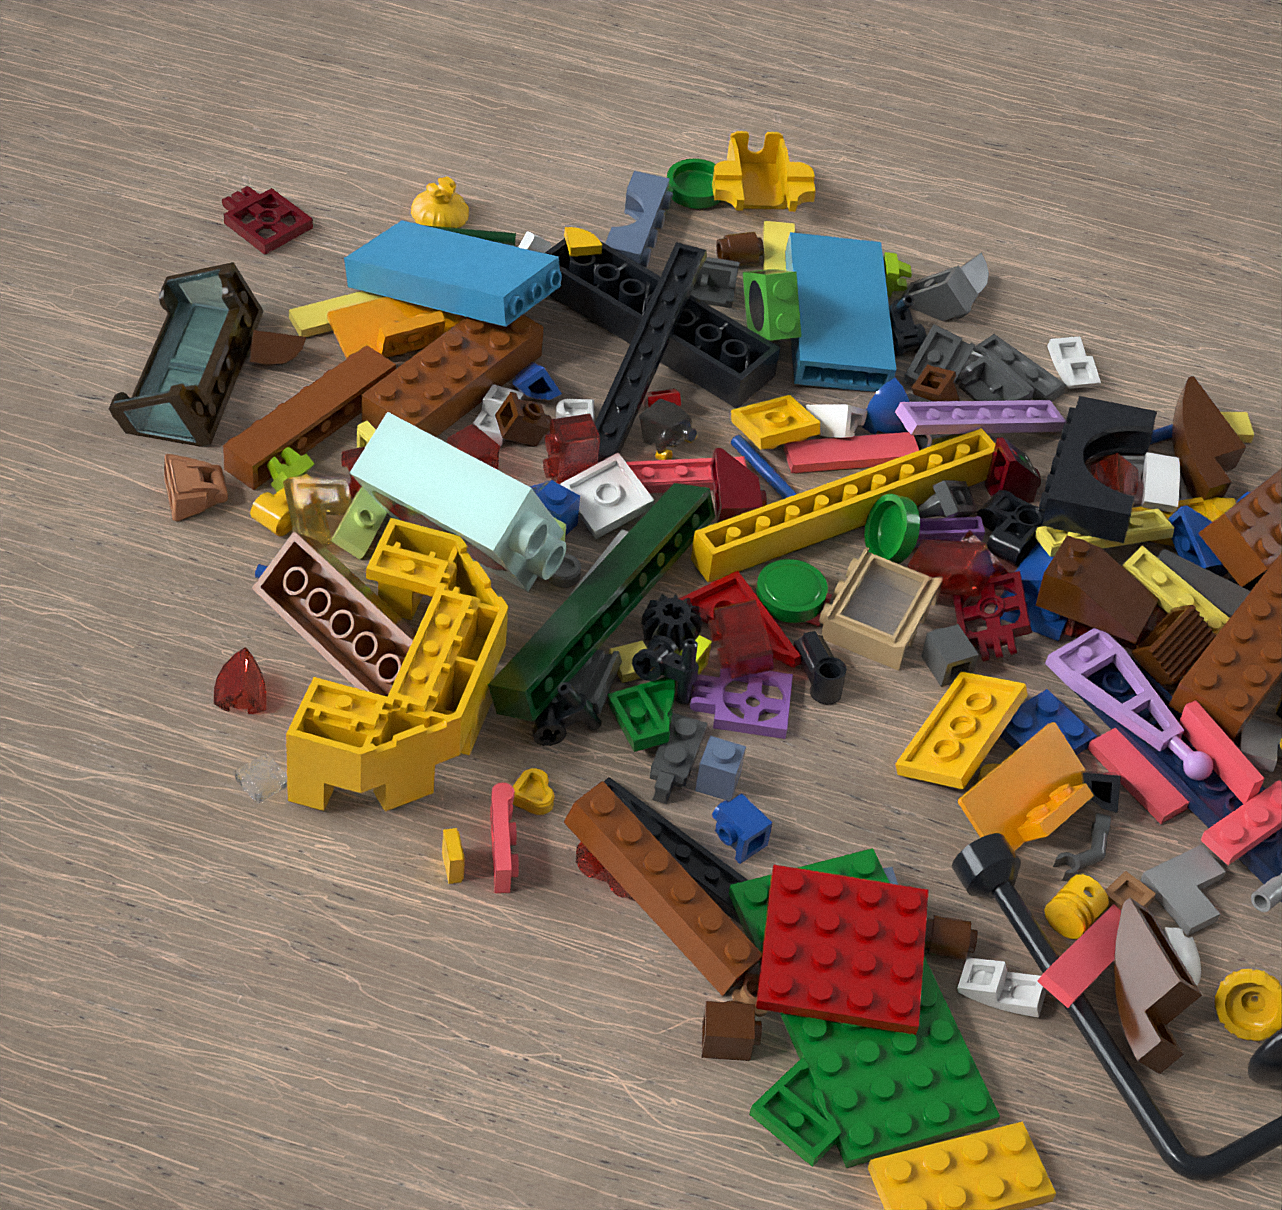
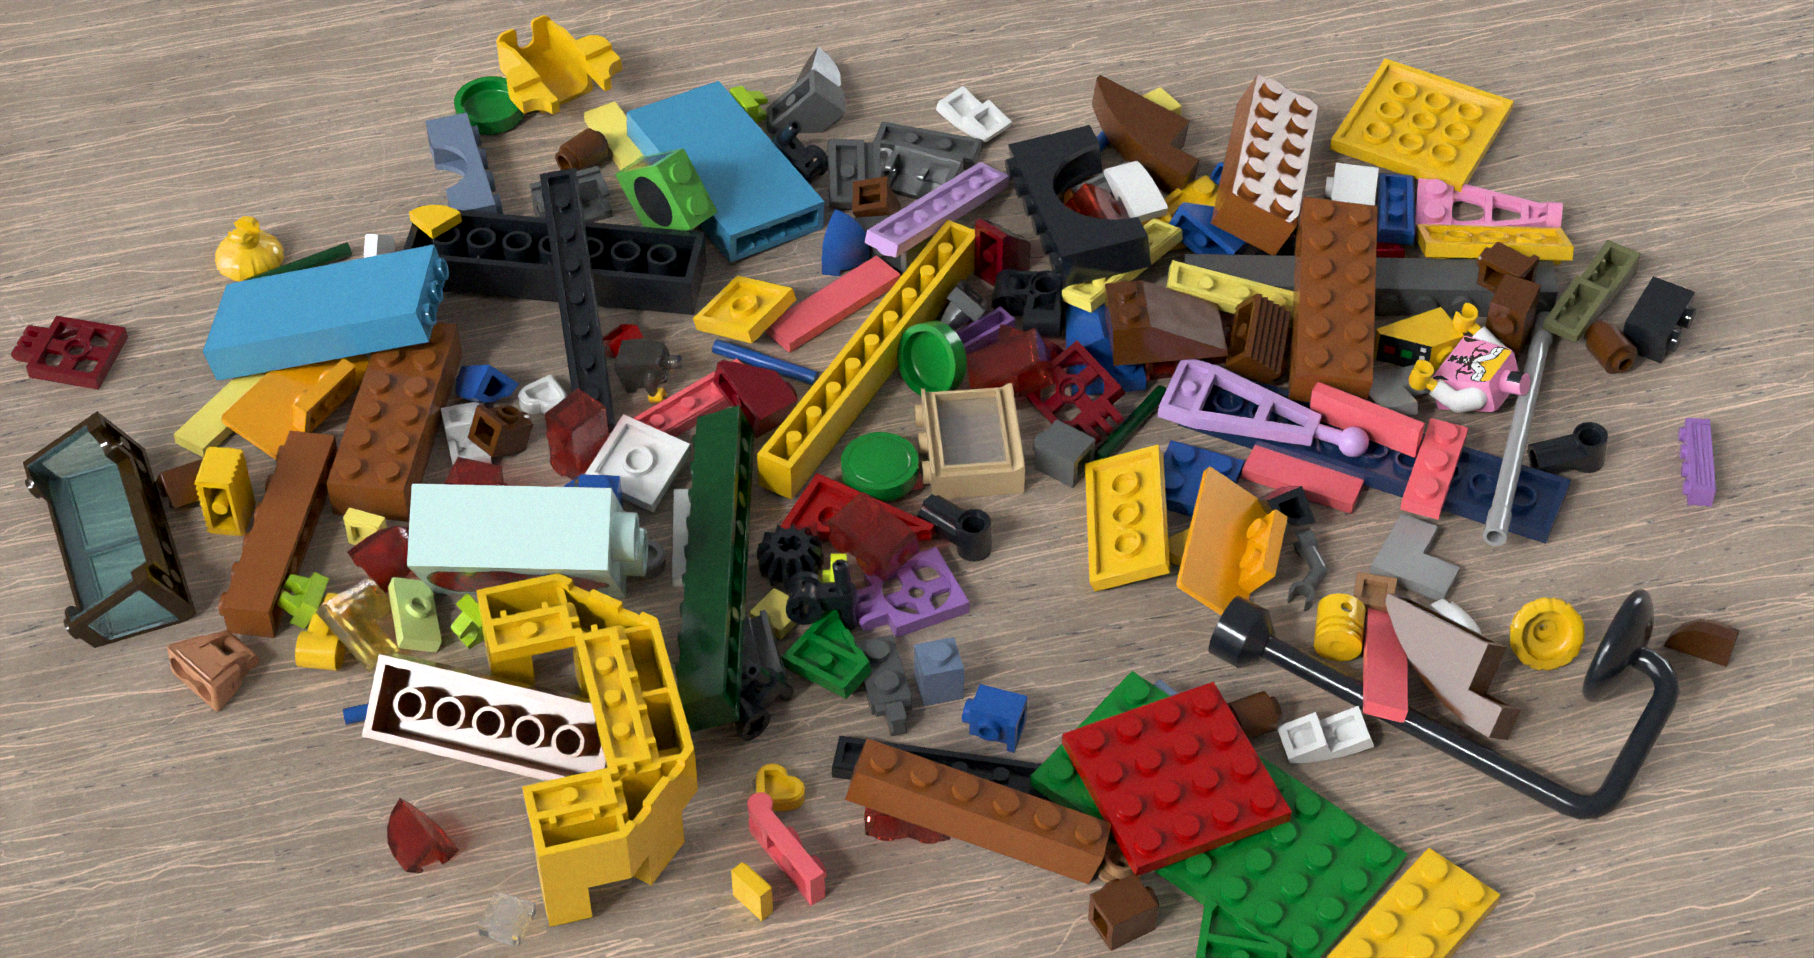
camera: 25 degrees left, 0 degrees up
(287, 363) = (225, 491): none -> yellow brick
(838, 419) = (801, 276): white brick -> none
(1016, 663) = (1130, 424): none -> dark green bar

